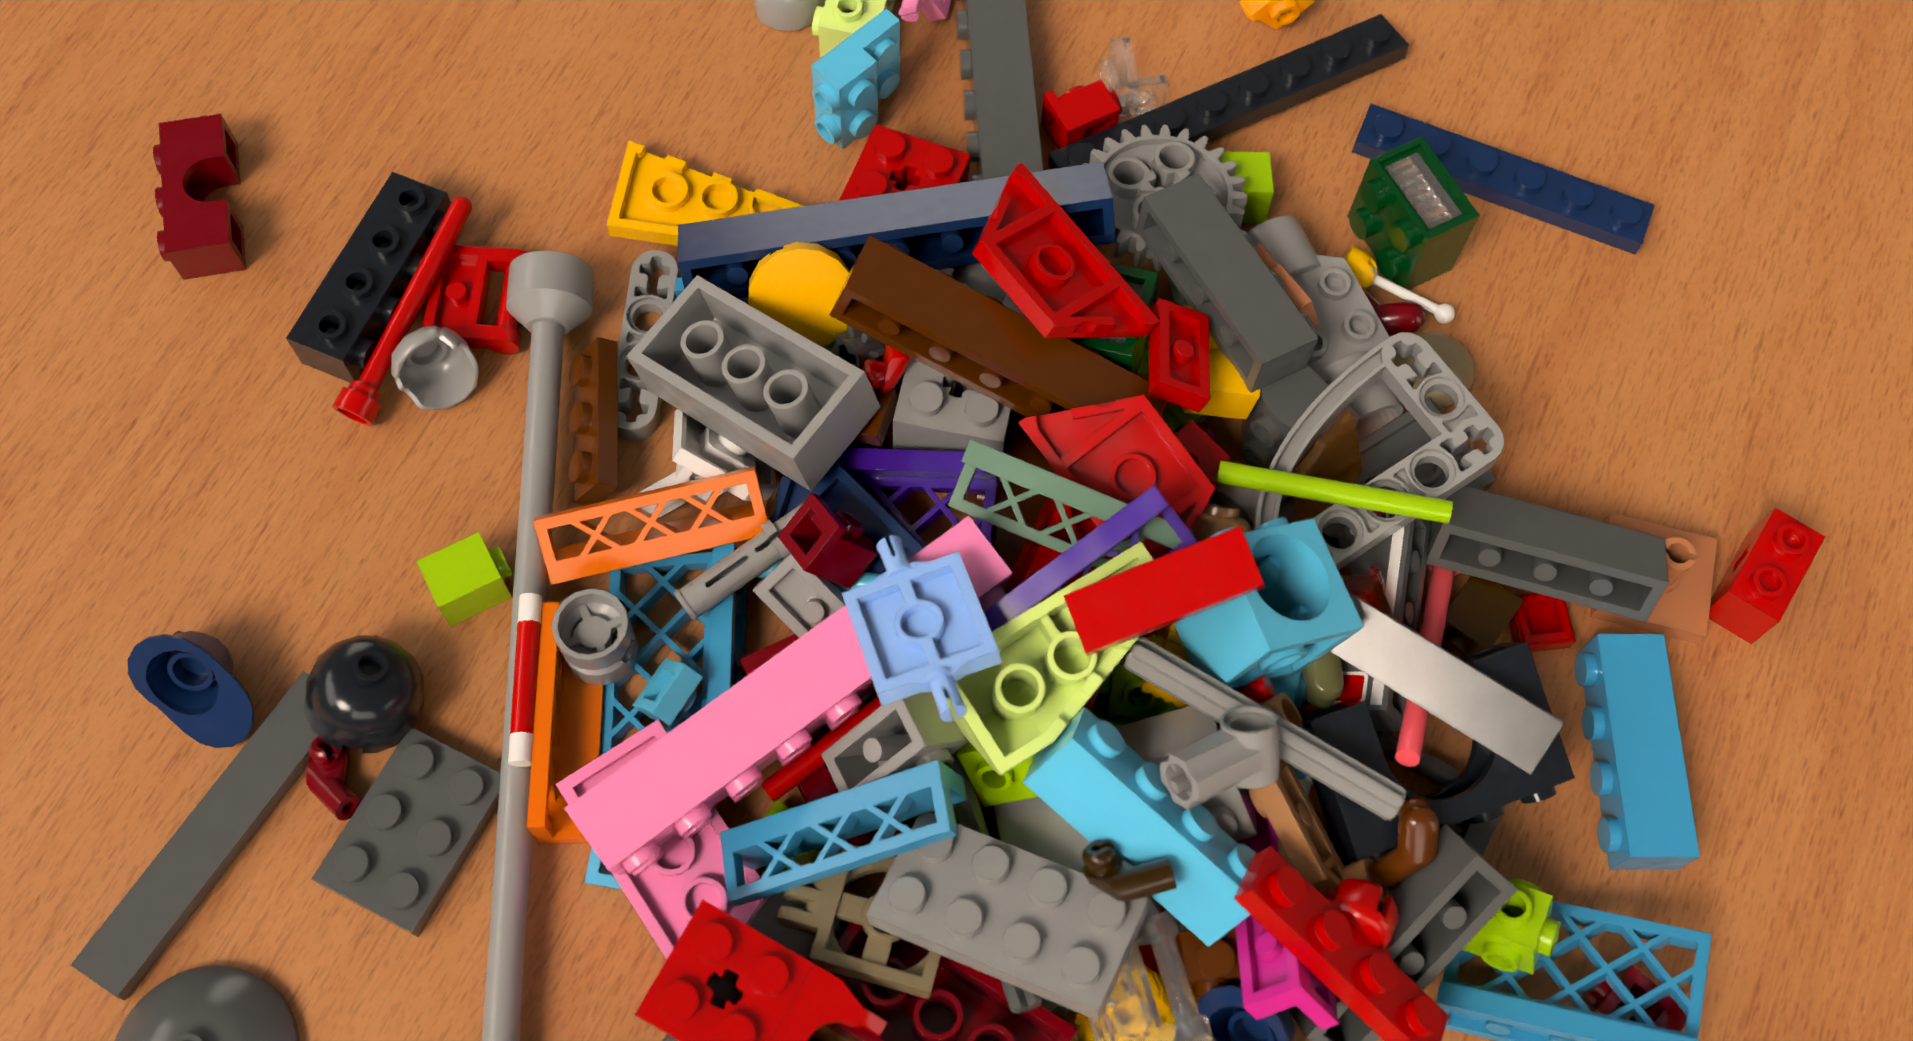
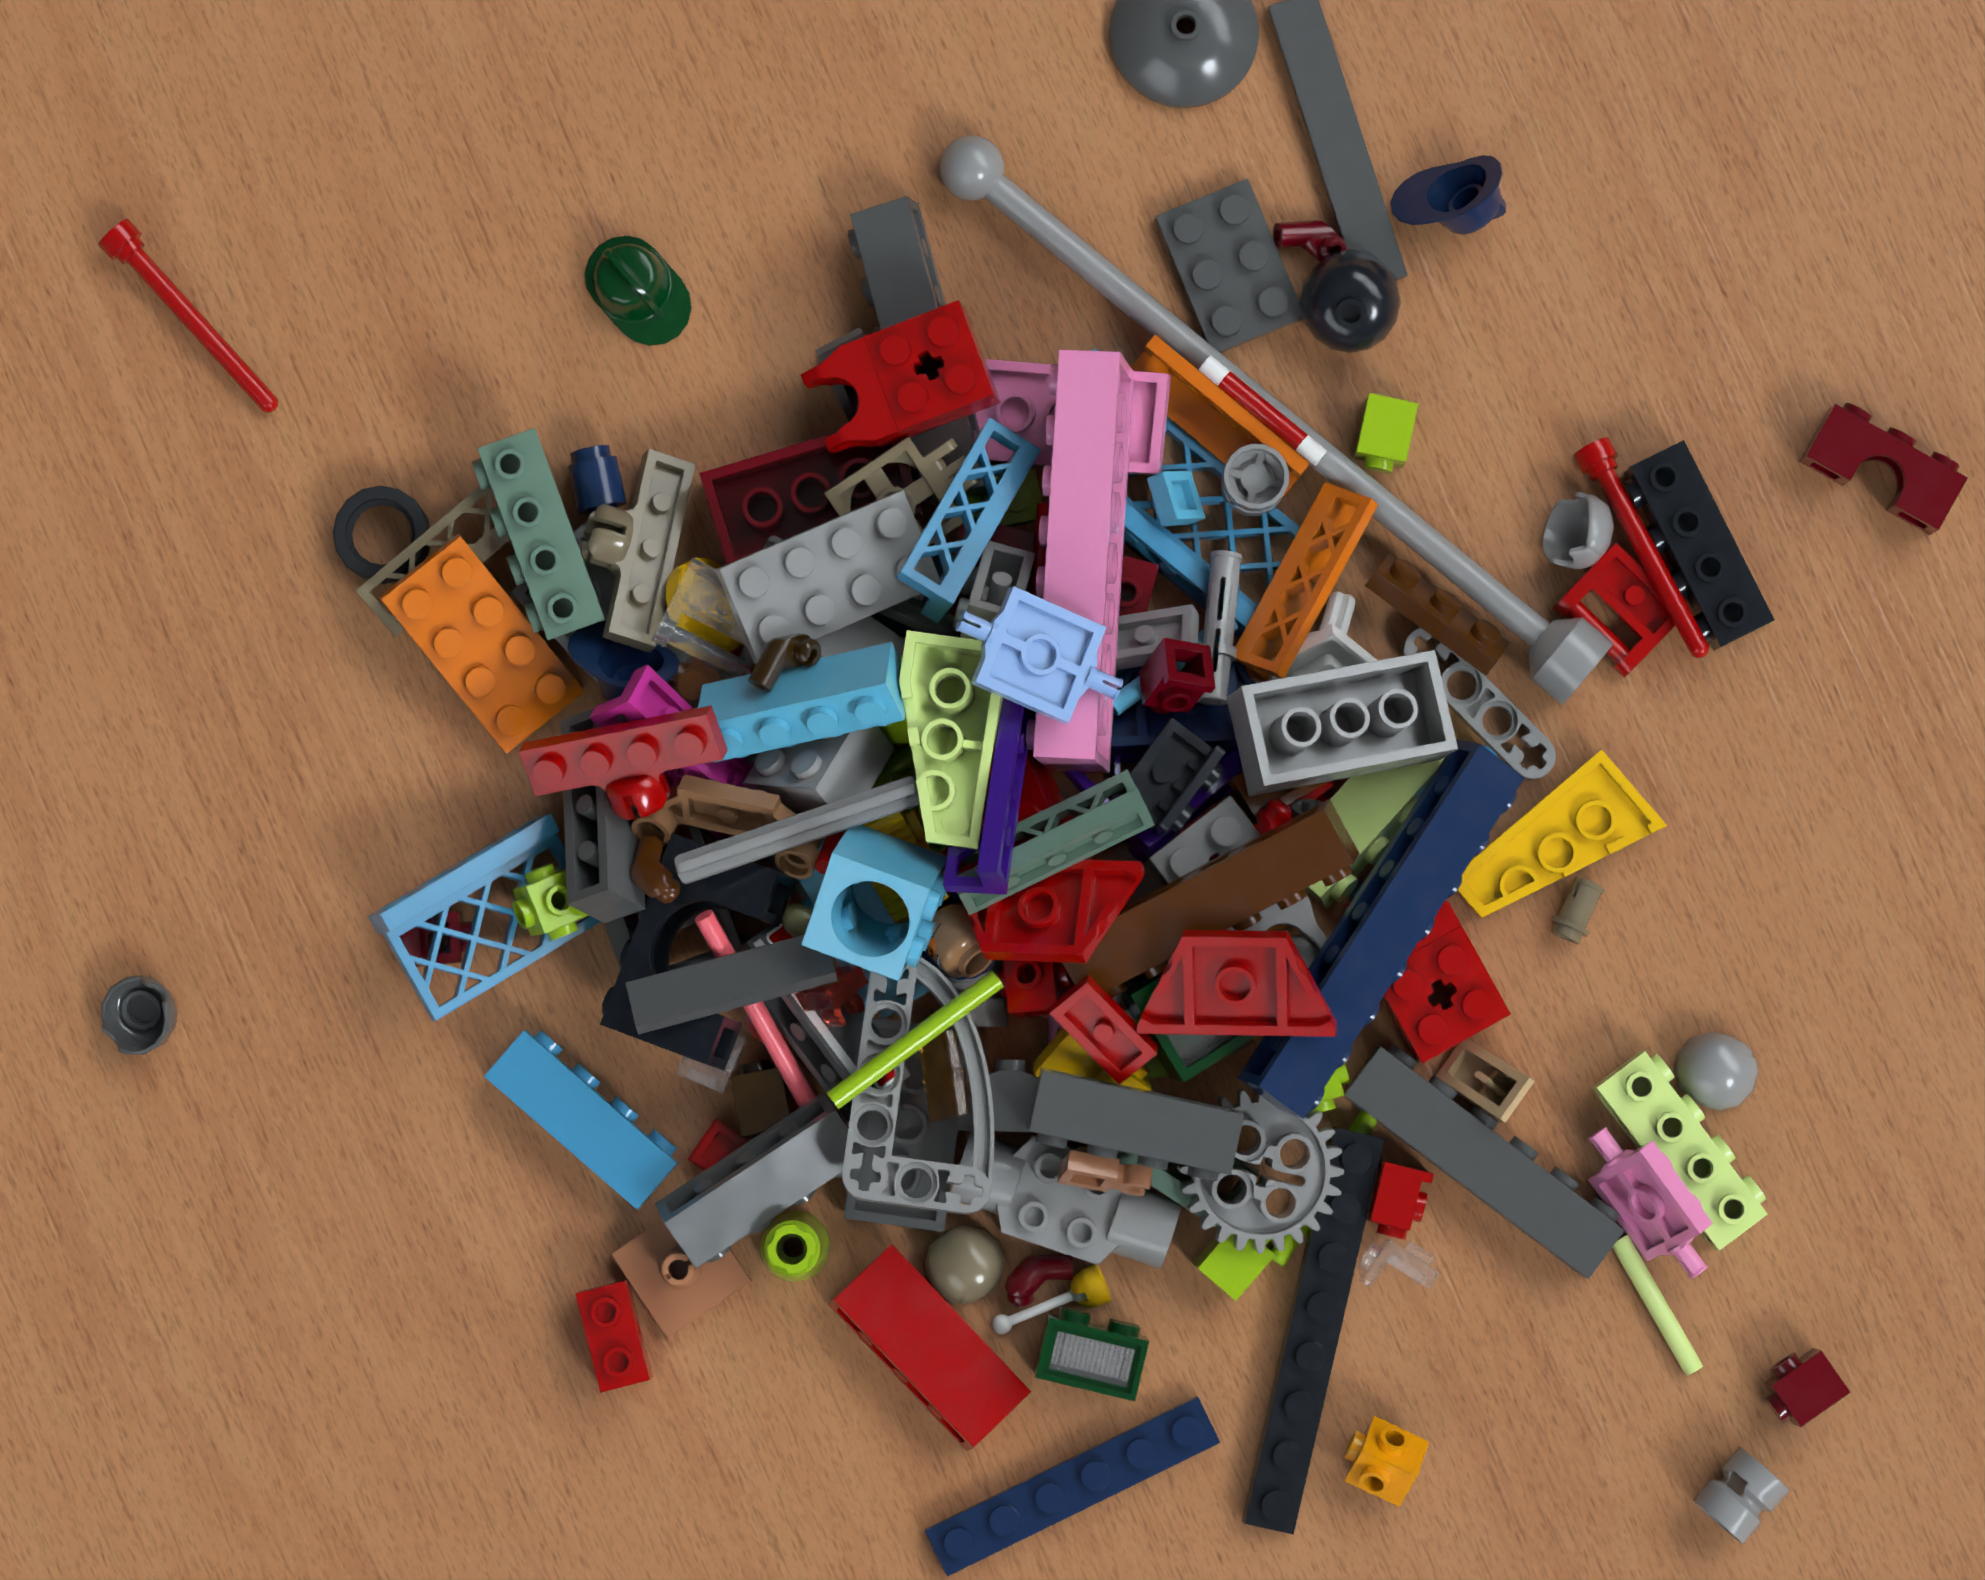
camera: 130 degrees right, 20 degrees up
(751, 158) = (1577, 910): none -> dark tan pin
(800, 289) = (1387, 815): yellow tile -> none
(854, 78) = (1563, 1021): medium azure plate -> none
(916, 475) = (1172, 773): none -> black bracket
(939, 105) = (1485, 1080): none -> tan slope
(1164, 591) = (926, 822): red tile -> none
(1237, 755) = (790, 789): light grey piece -> none
(1522, 340) = (929, 1348): none -> red brick
(1566, 480) = (812, 1235): none -> lime plant

